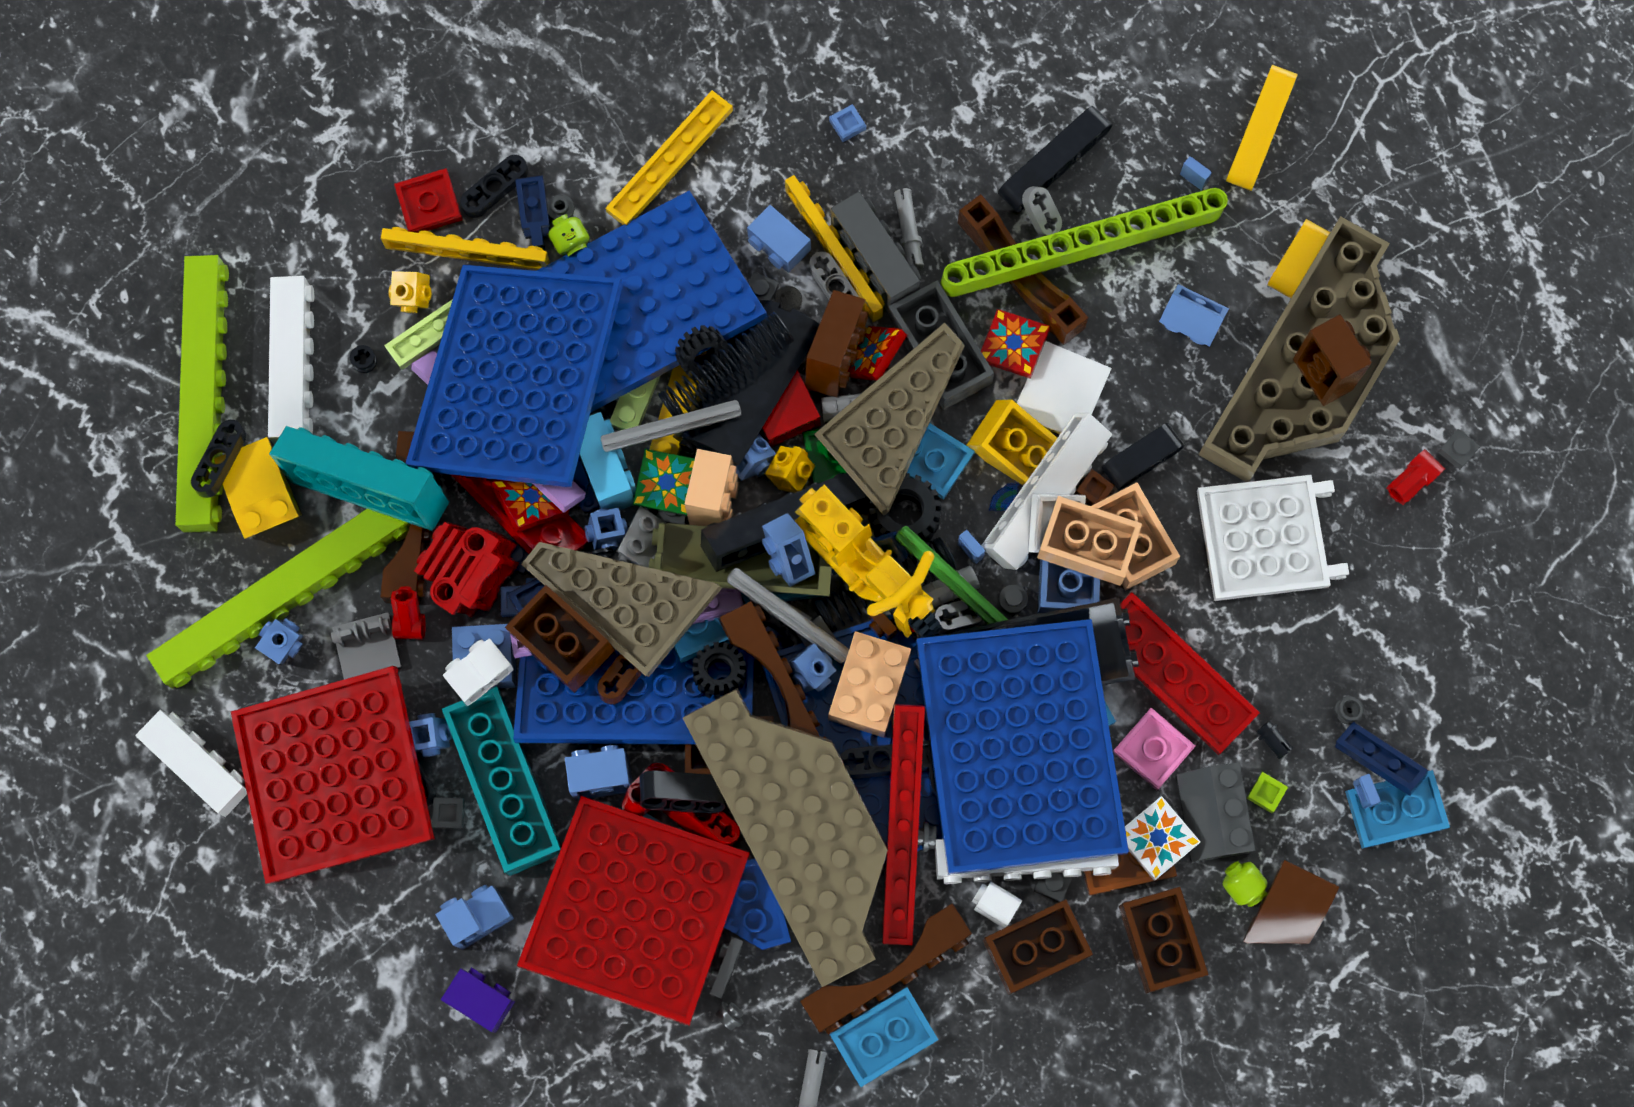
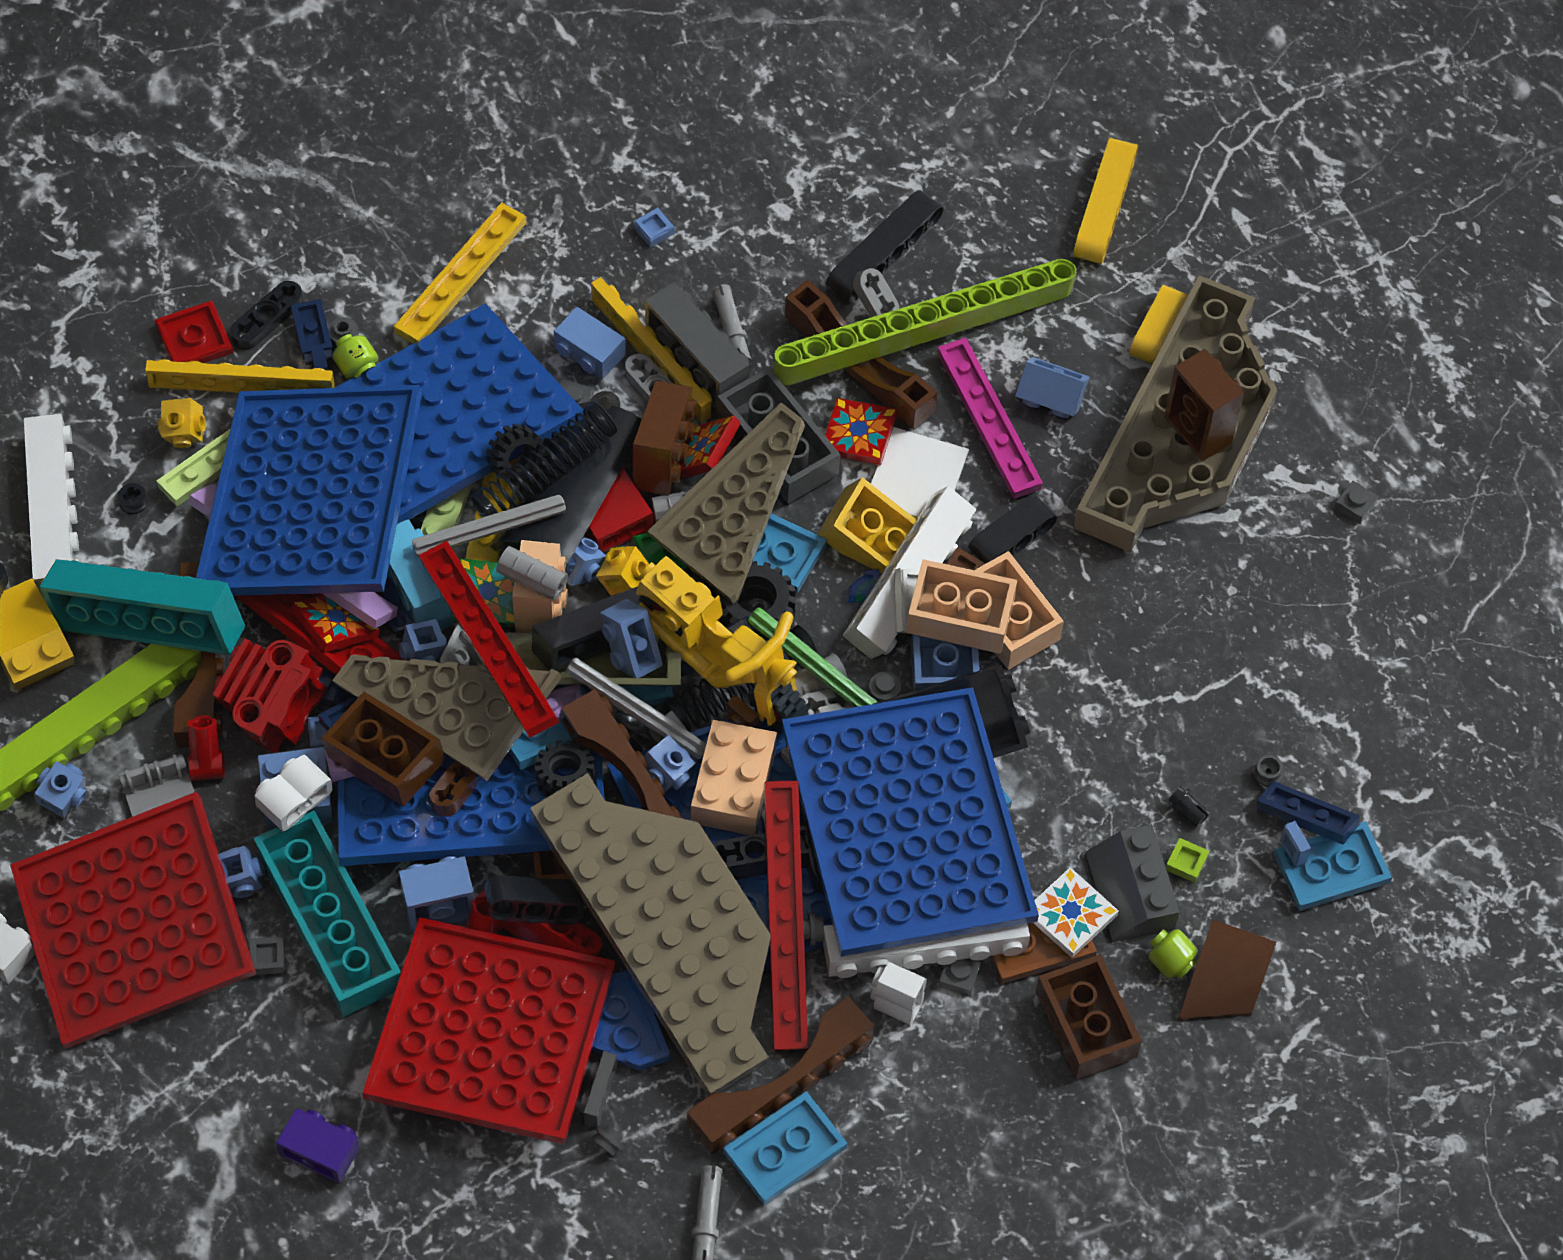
camera: 10 degrees left, 15 degrees down
(475, 918) = (306, 1058): medium blue brick -> none
(659, 547) = (488, 639): none -> red plate
(702, 486) = (531, 573): none -> light grey axle
(971, 547) = (832, 636): medium blue tile -> none
(1037, 947) = (948, 1035): reddish brown brick -> none
(1133, 340) = (989, 418): none -> dark pink plate
(1154, 749) = (1057, 828): bright pink tile -> none
(1185, 679) = (1085, 754): red plate -> none
(1195, 173) = (1038, 248): medium blue tile -> none
(1266, 537) = (1157, 603): white plate -> none
(1419, 473) = (1316, 525): red piece -> none

